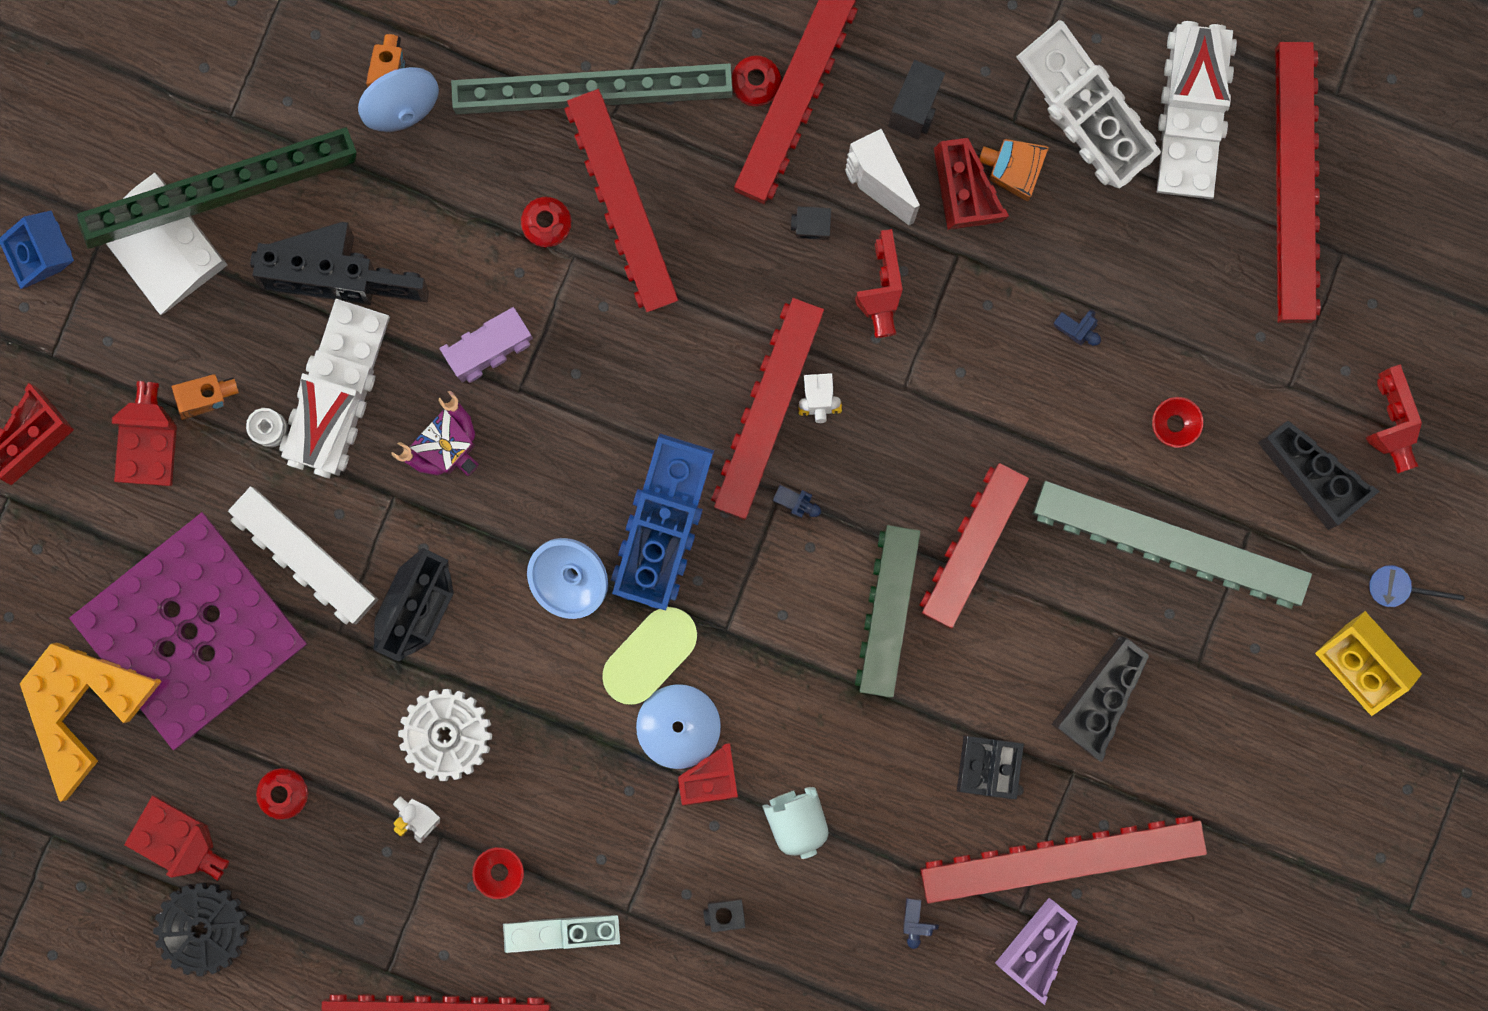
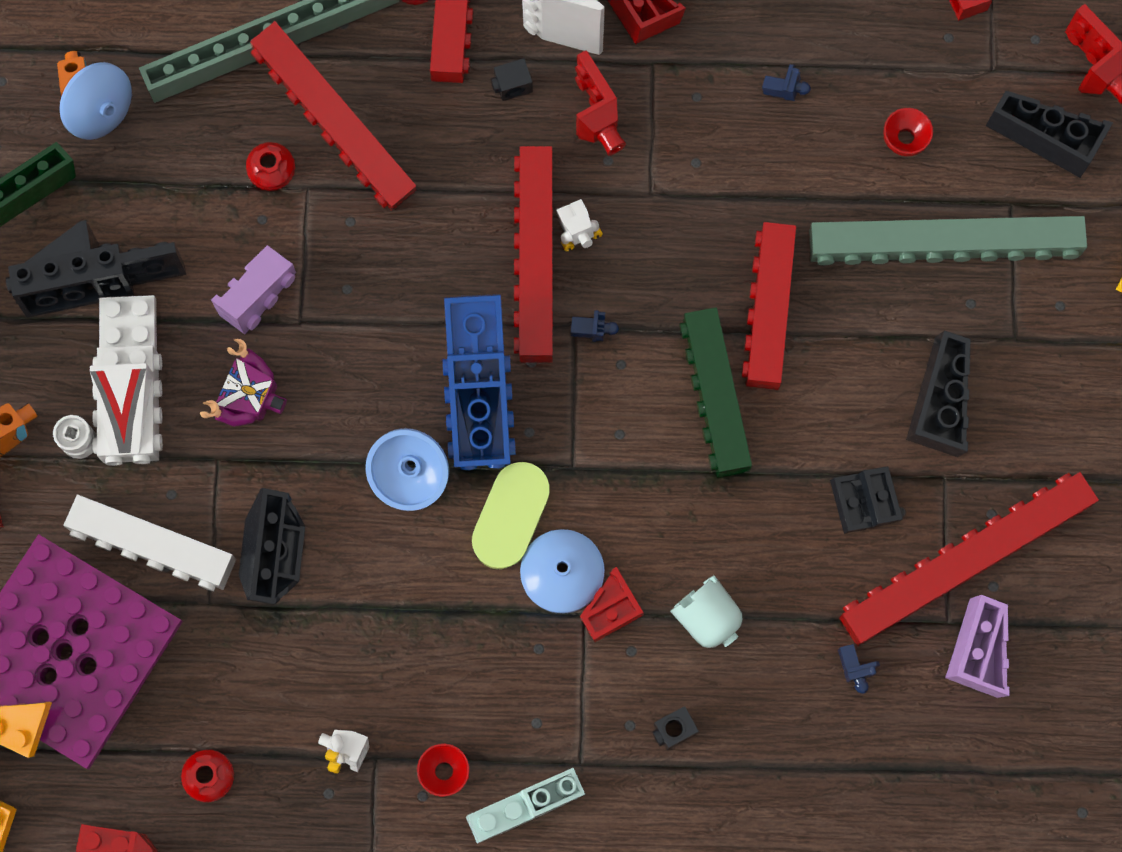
camera: 25 degrees left, 10 degrees down
(423, 736) = (322, 662): white piece -> none

